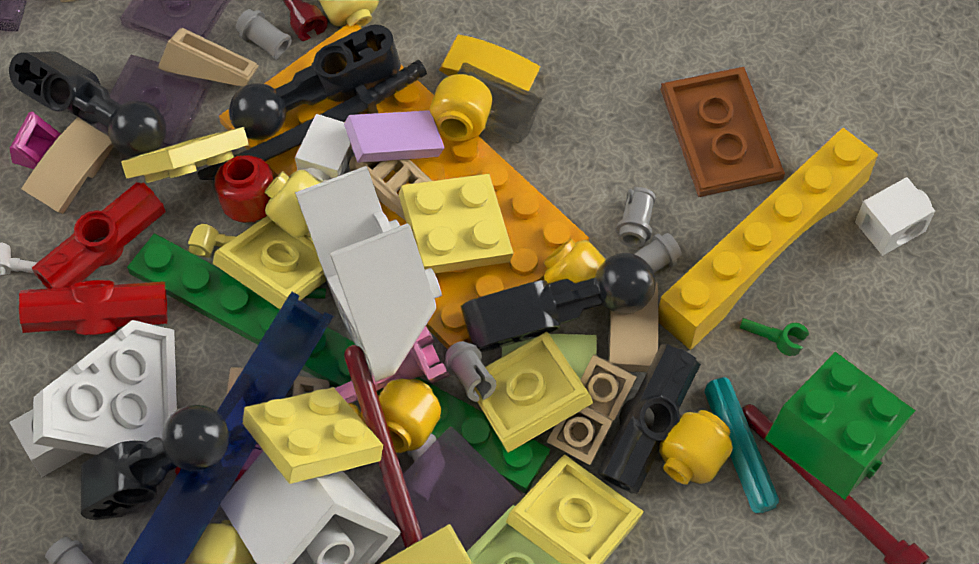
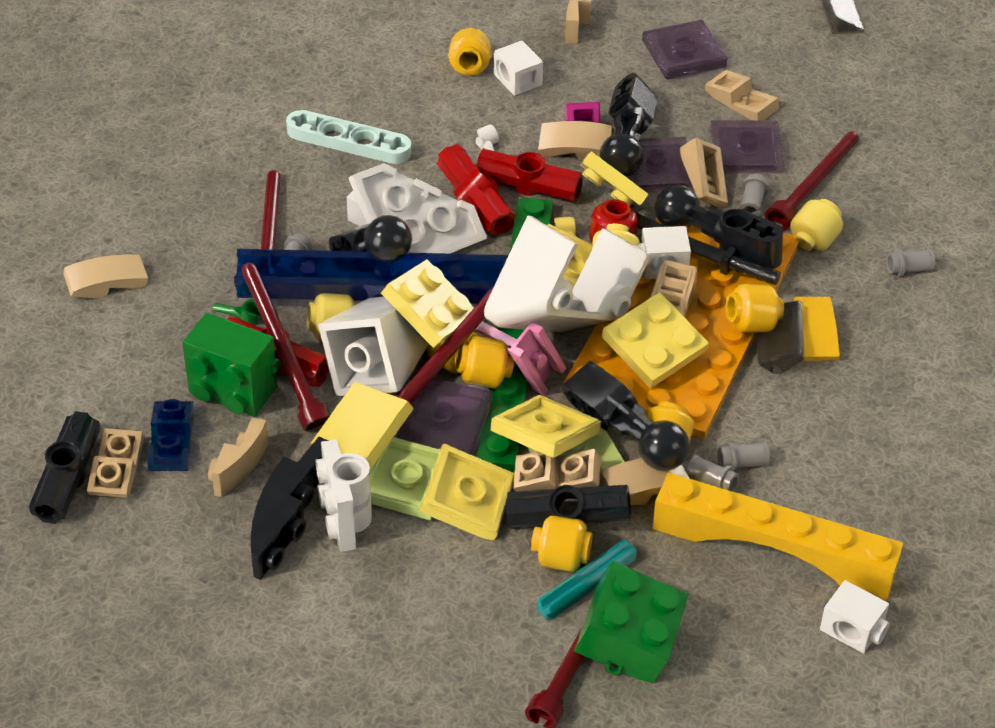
camera: 65 degrees right, 15 degrees down
(393, 136) = (697, 273): lavender tile -> none
(465, 363) = (545, 384): light grey pin -> none
(722, 131) = (864, 486): dark orange tile -> none
(778, 336) = (698, 576): green hand -> none

